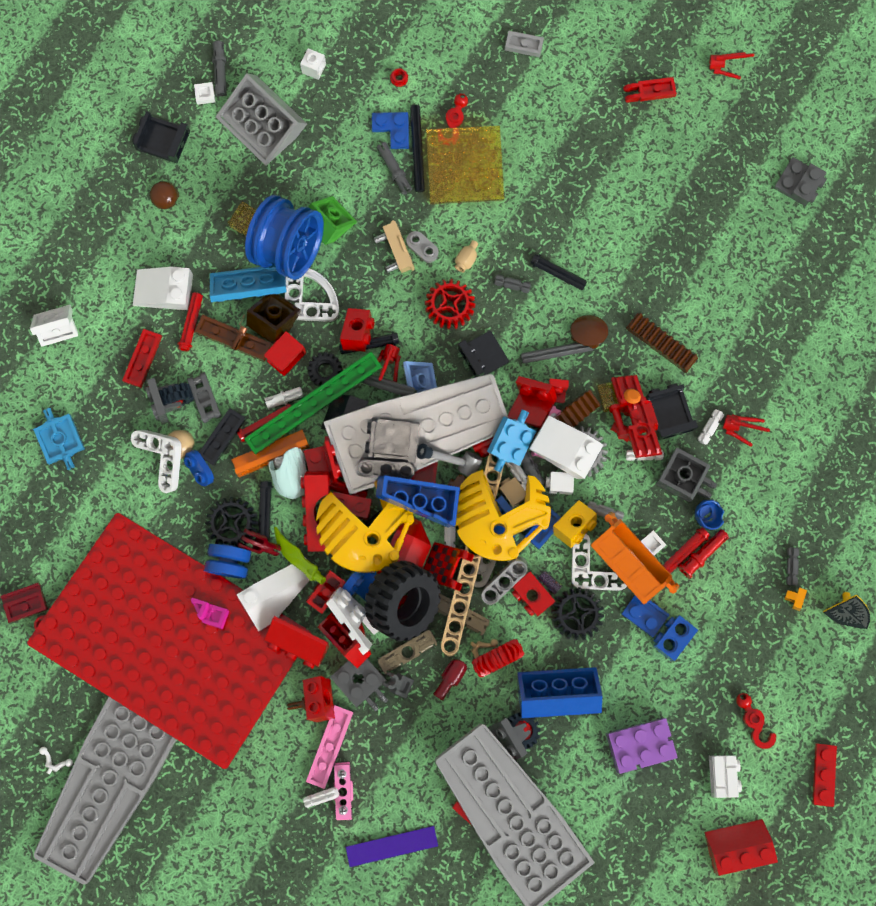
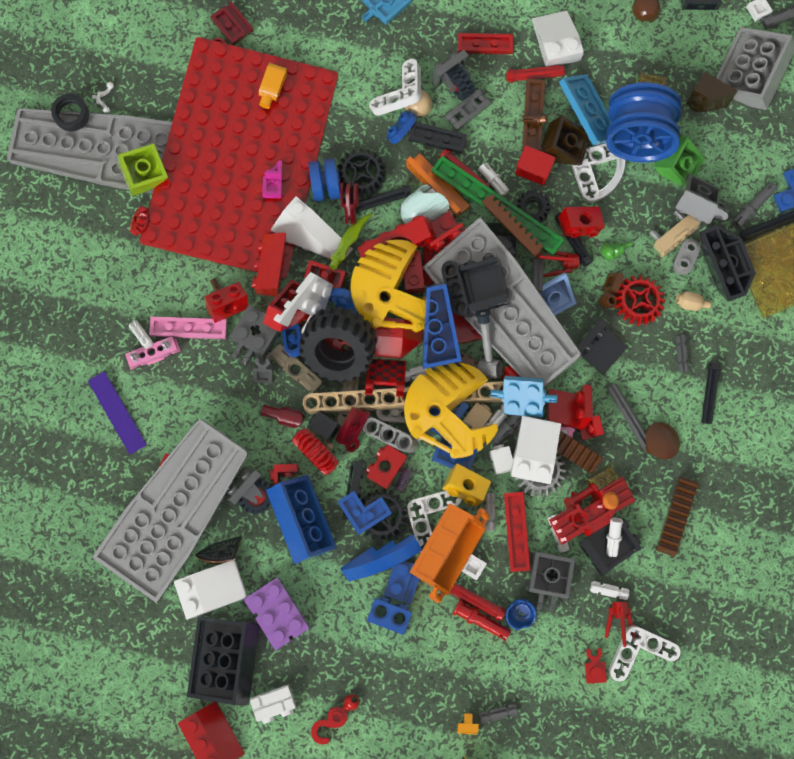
camera: 75 degrees right, 0 degrees up
(44, 797) = (66, 99): none -> black tyre
(108, 582) = (271, 84): none -> light orange piece
(151, 742) = (142, 169): none -> lime slope
(202, 763) = (139, 221): none -> red gear
(274, 168) = (710, 94): none -> dark brown slope
(345, 394) = (513, 226): none -> reddish brown gear
(375, 214) = (701, 200): none -> hinge
(379, 644) = (292, 341): none -> blue plate
(394, 310) = (612, 251): none -> bright green piece
(427, 324) = (611, 286): none -> reddish brown plate
(443, 211) = (727, 262): none -> black wedge
(475, 641) = (324, 426): none -> black brick
(486, 615) = (352, 427): none -> dark red hinge
(504, 693) = (286, 469): none -> red bracket
(545, 634) = (355, 474): none -> black plate
(565, 782) = (221, 551): none -> shield
(578, 629) = (363, 517): none -> blue plate
(599, 804) = (210, 589): none -> white slope
(620, 636) = (375, 561): none -> blue slope
(632, 492) = (517, 532): none -> red plate
(665, 405) = (614, 537): none -> white axle
(670, 813) = (224, 661): none -> black slope
(766, 417) = (640, 642): none -> white beam
(778, 464) = (595, 670): none -> red plate

